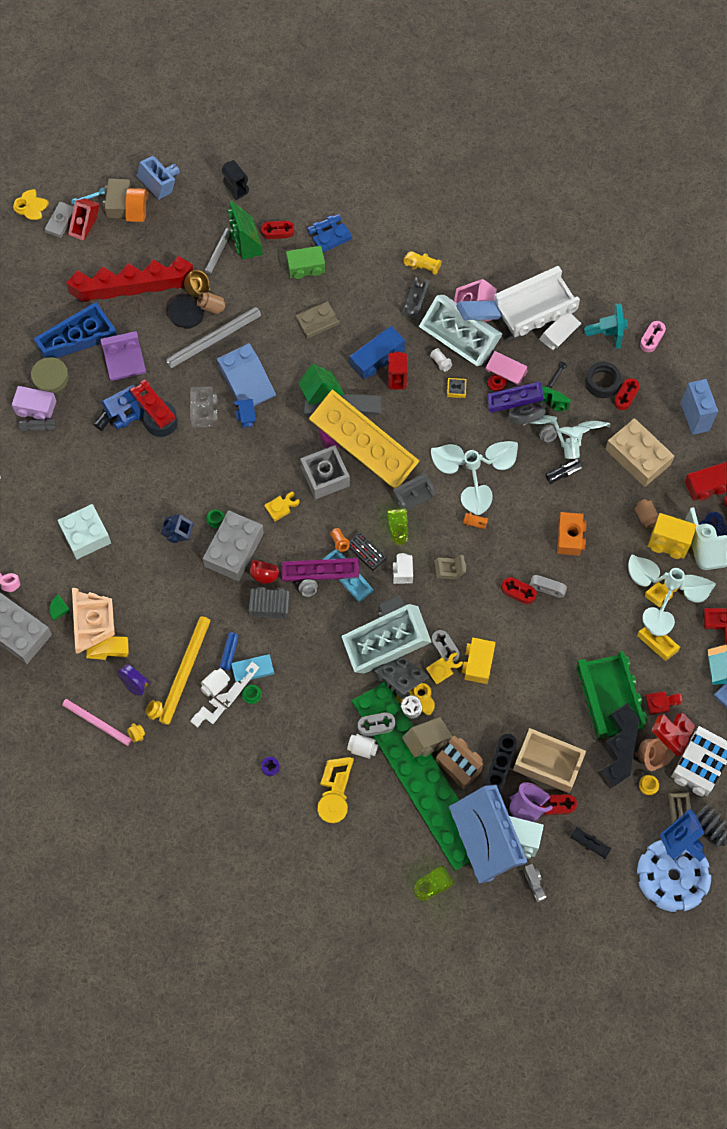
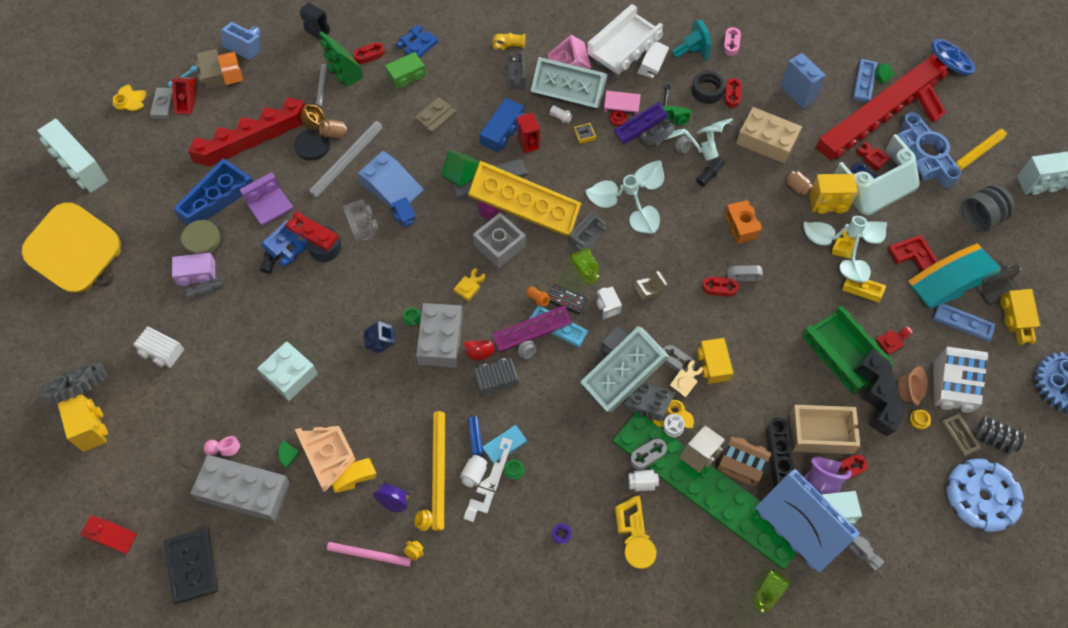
camera: 20 degrees left, 5 degrees down
(475, 521) = (652, 239): orange pin -> none
(478, 310) = (580, 58): medium blue tile -> none
(590, 842) = (896, 493): black pin -> none
(675, 734) = (922, 362): red plate -> none
(683, 836) = (982, 452): blue bracket -> none

